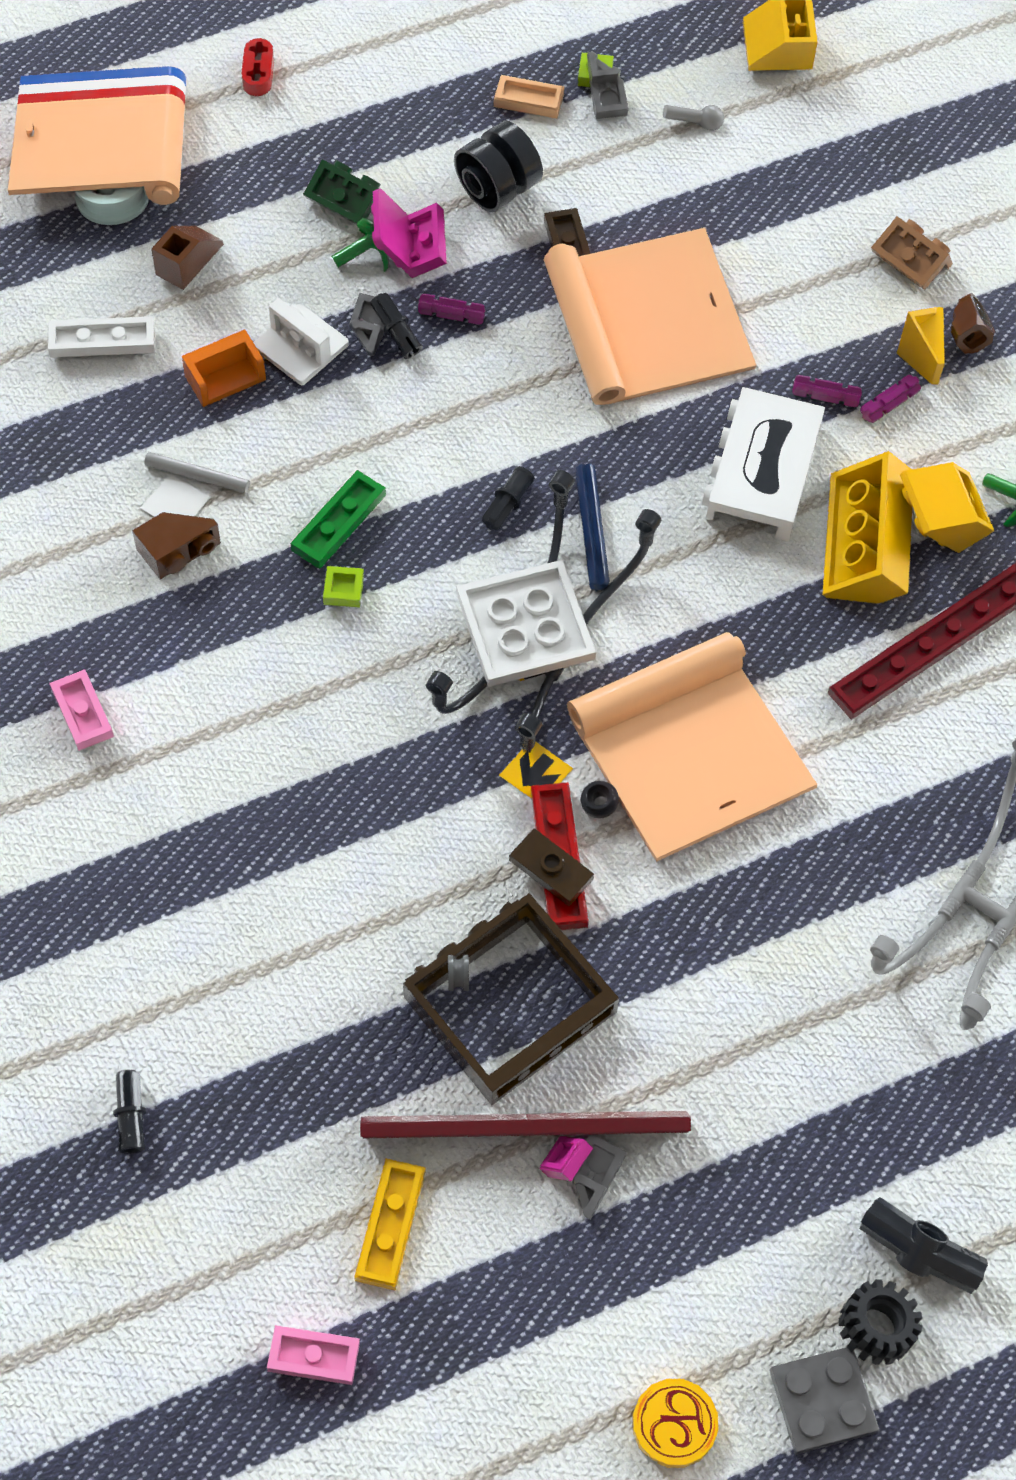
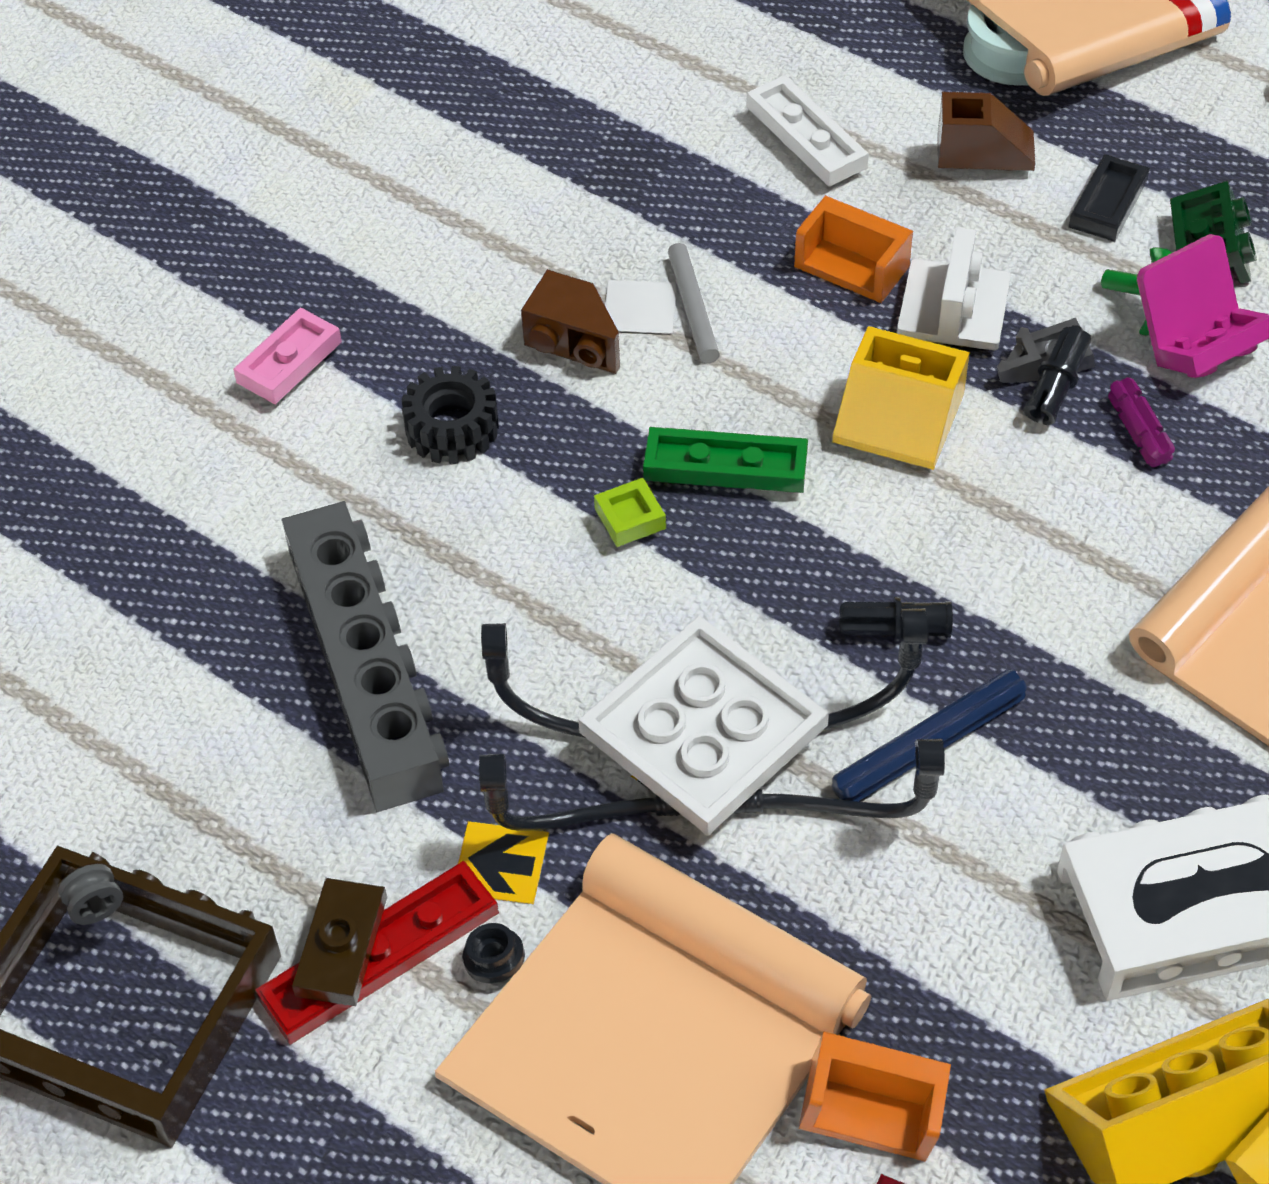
camera: 65 degrees right, 10 degrees down
(194, 625) = (447, 393): none -> black tyre
(273, 222) = (1109, 197): none -> black tile
(362, 407) = (901, 397): none -> yellow slope
(369, 785) = (349, 618): none -> dark grey brick
(792, 665) = (875, 1096): none -> orange panel

